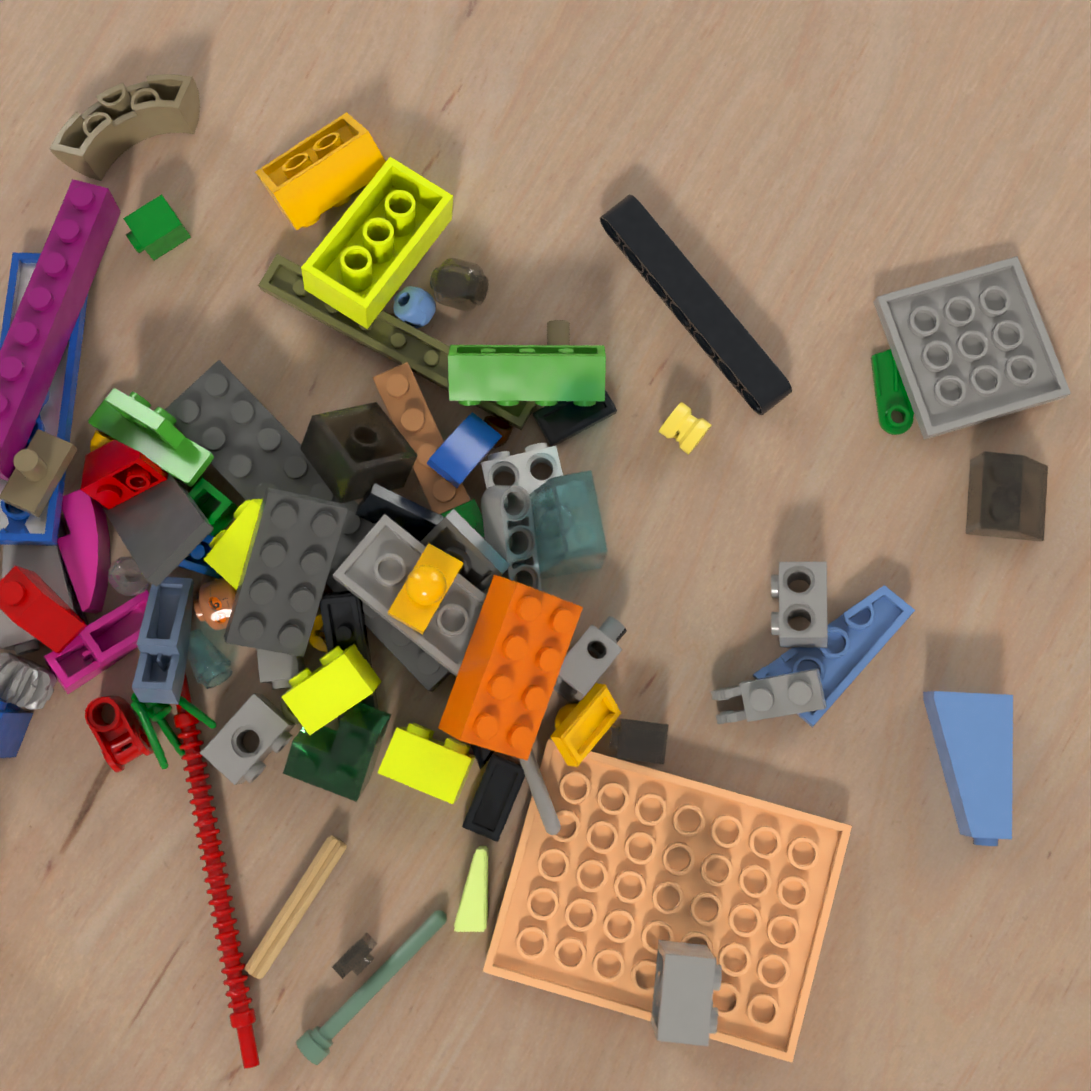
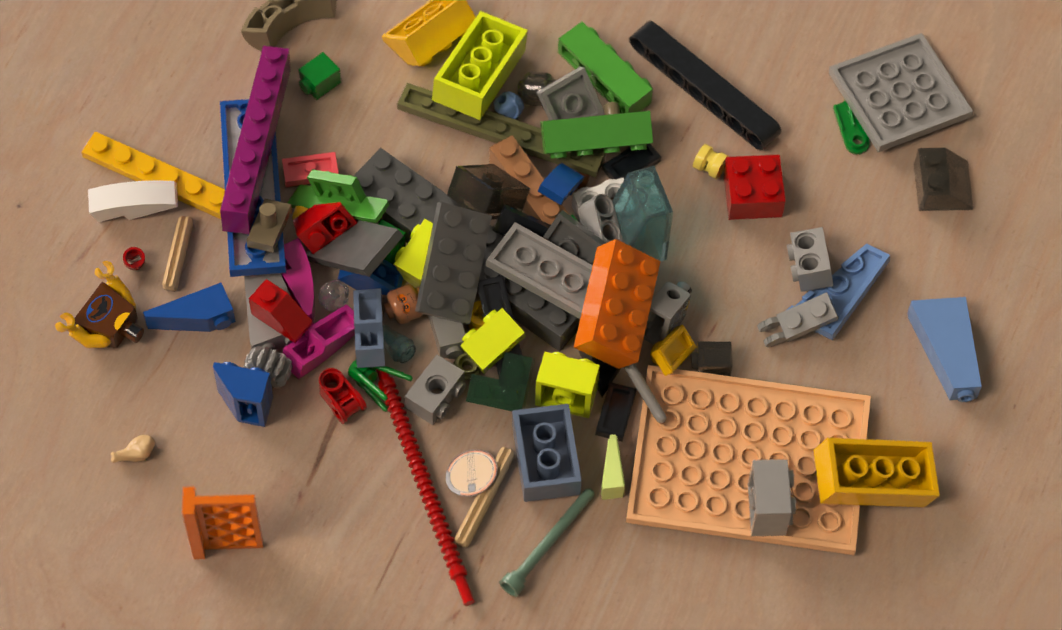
camera: 10 degrees left, 20 degrees down
(126, 372) = (298, 168): none -> coral plate
(282, 869) = (471, 473): none -> tan sticker
(356, 958) = (533, 520): clear smoke plate -> none
(384, 862) = (546, 452): none -> sand blue brick
(425, 588) = (551, 261): yellow tile -> none
(501, 311) = (570, 97): none -> light grey plate
(558, 264) = (606, 70): none -> bright green brick
(740, 477) = (754, 187): none -> red brick
(840, 964) = (876, 472): none -> yellow brick

